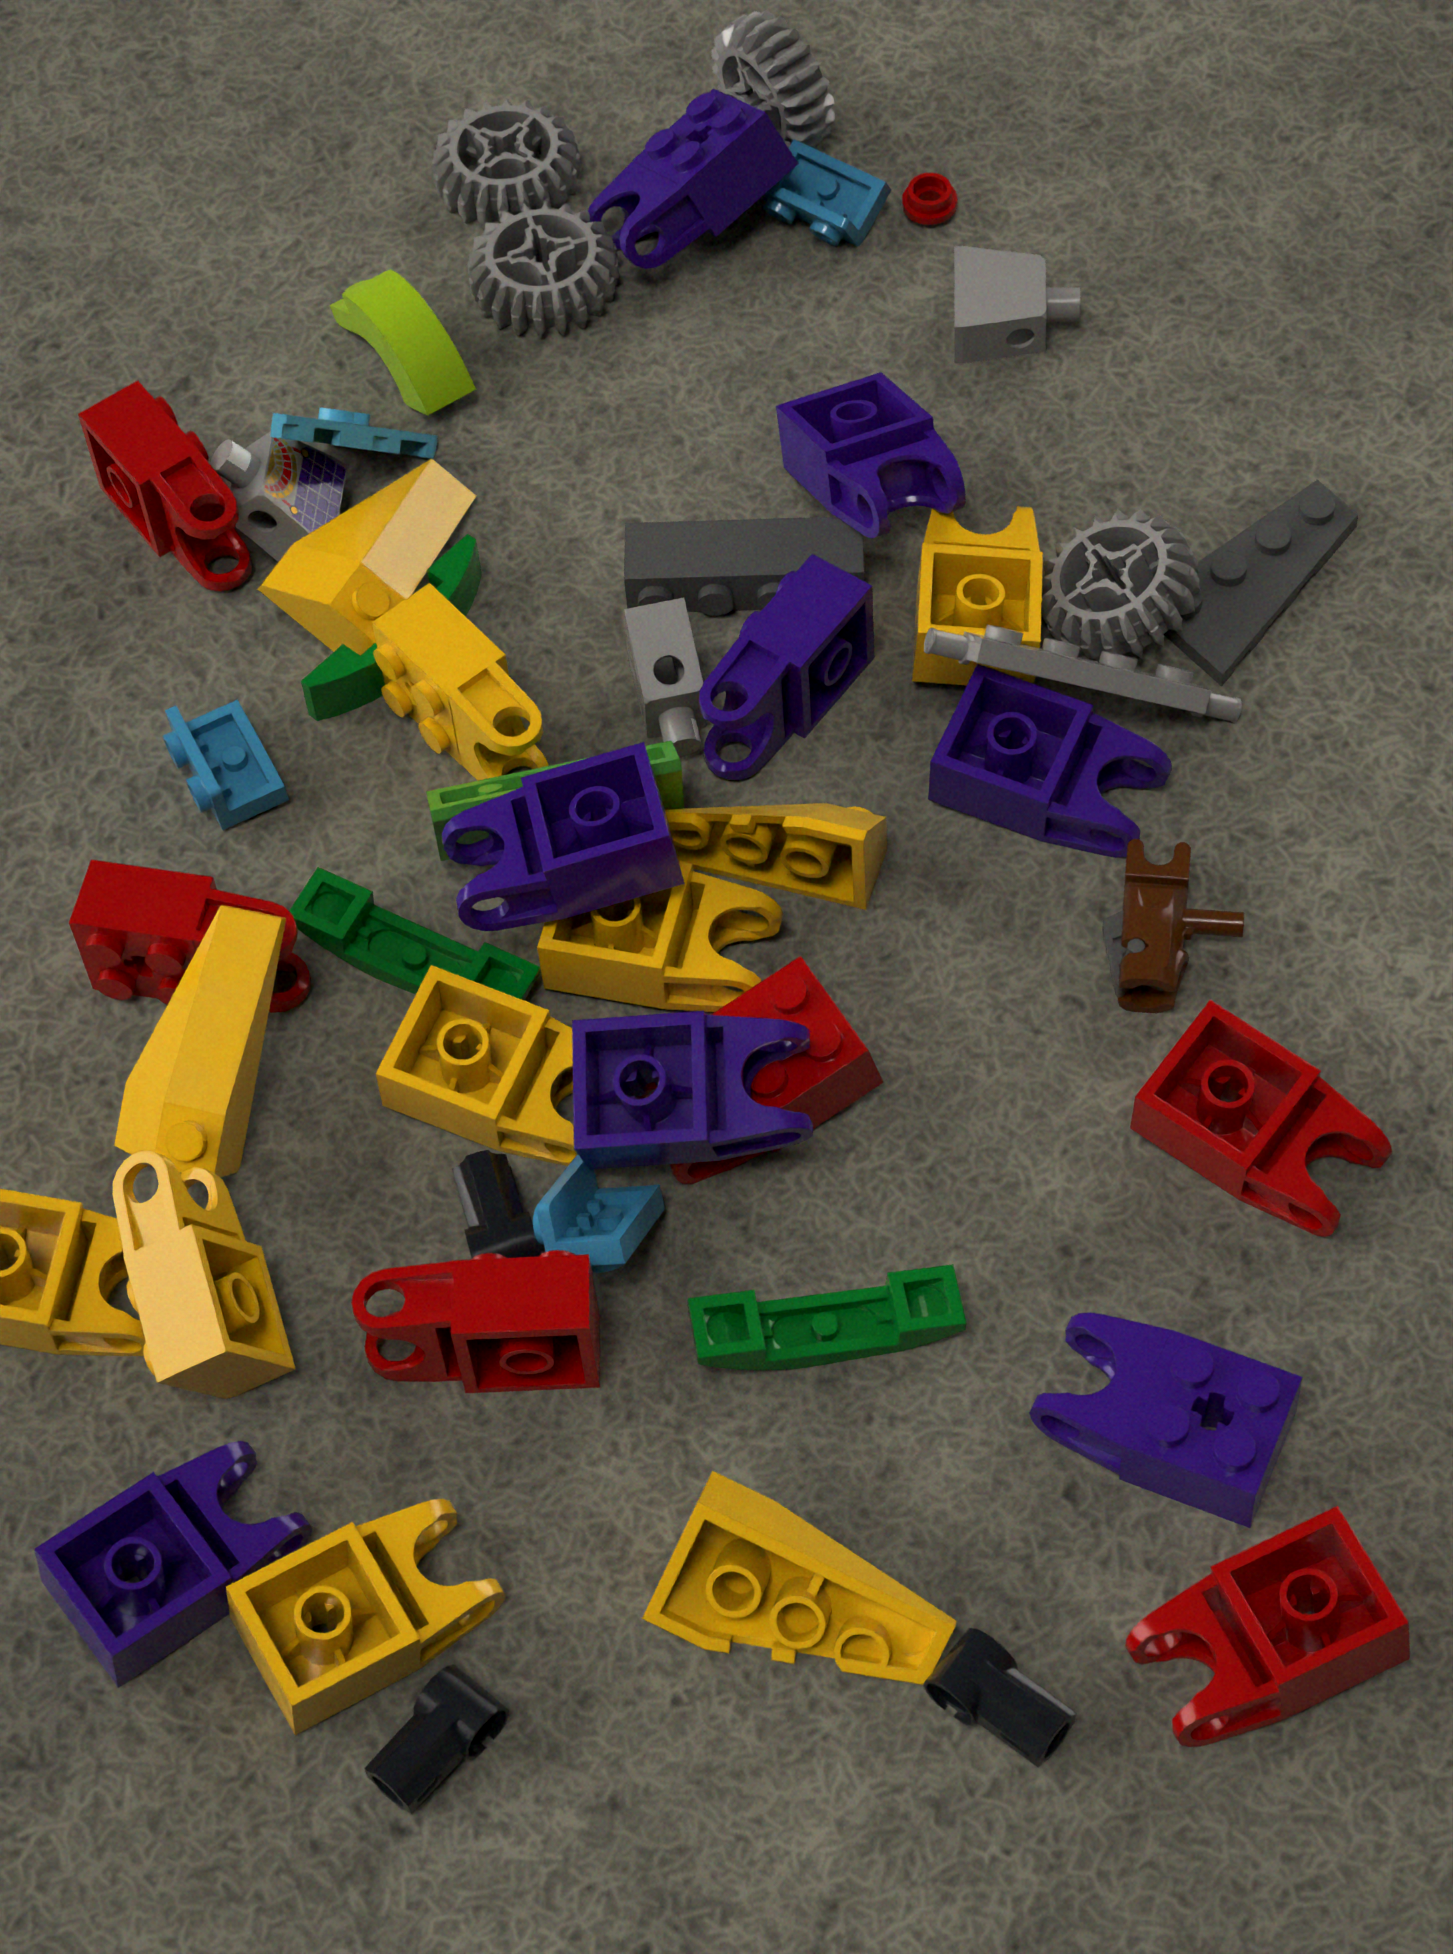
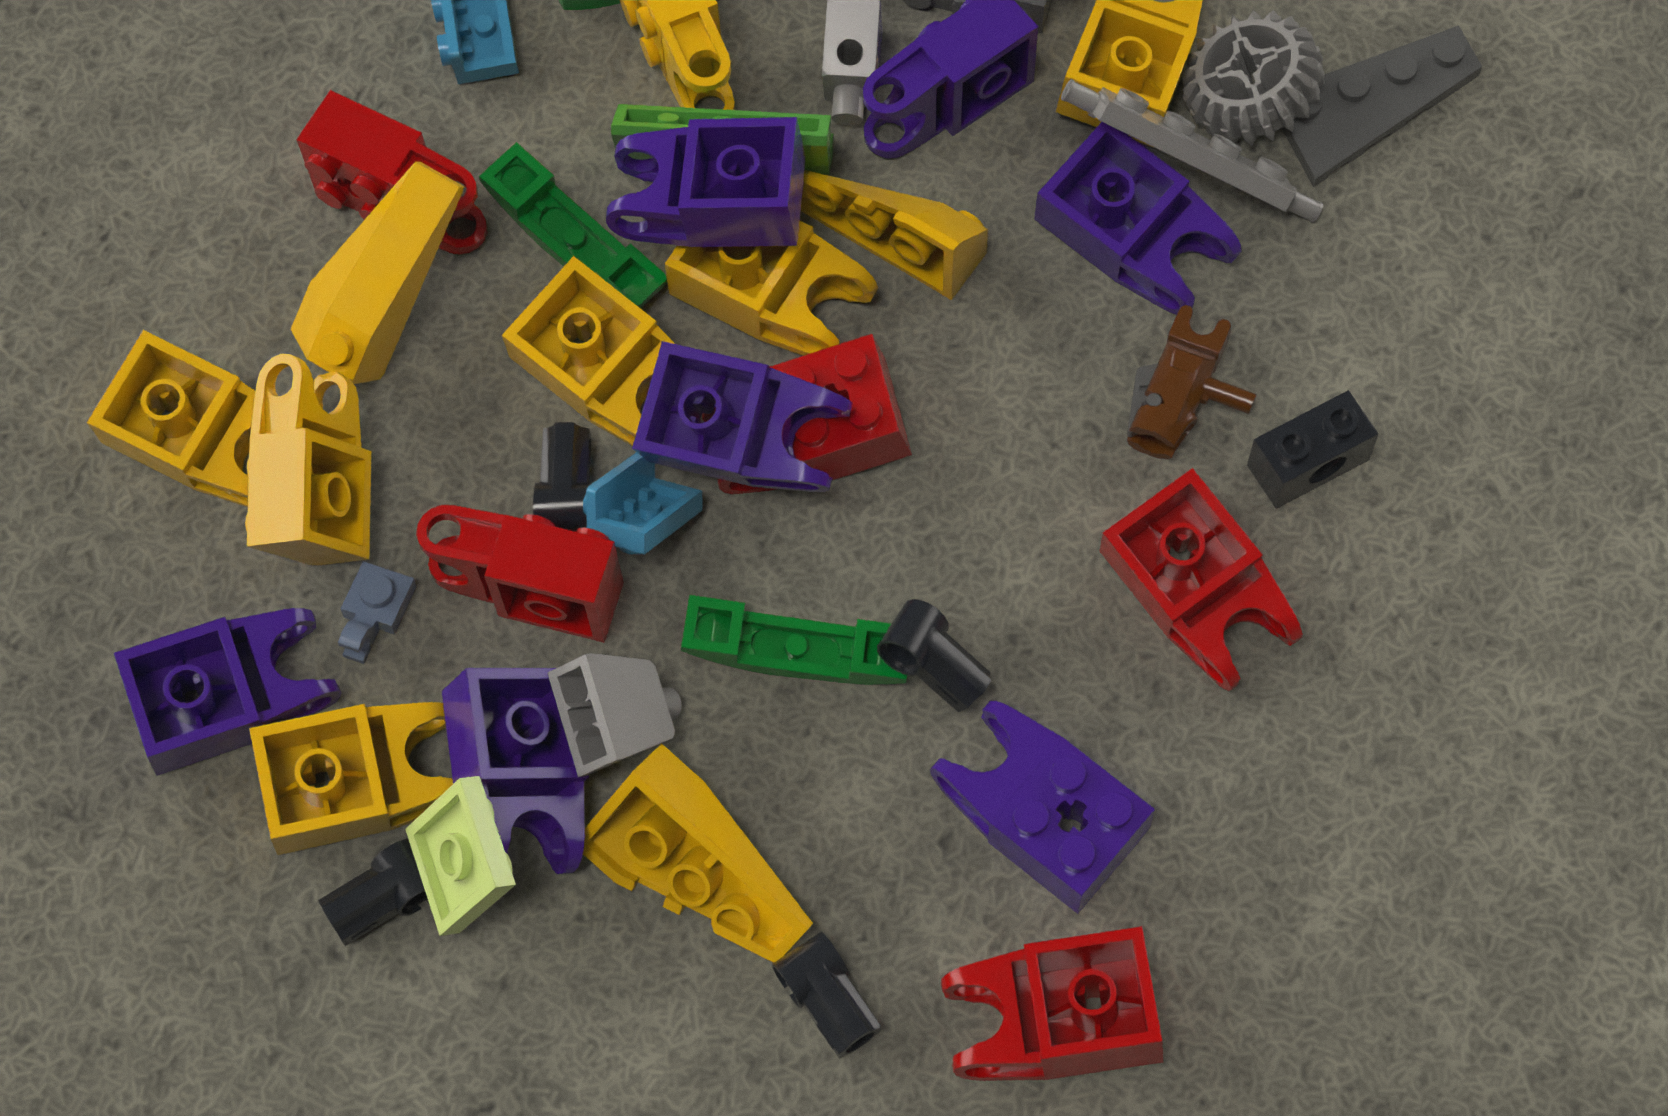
camera: 15 degrees right, 10 degrees up
(314, 1419) = (373, 604): none -> sand blue plate
(526, 1657) = (460, 855): none -> yellowish green plate
(552, 1540) = (513, 737): none -> dark purple brick
(643, 1445) = (612, 708): none -> light grey torso
(972, 1280) = (921, 647): none -> black piece
(1327, 952) = (1312, 449): none -> black brick

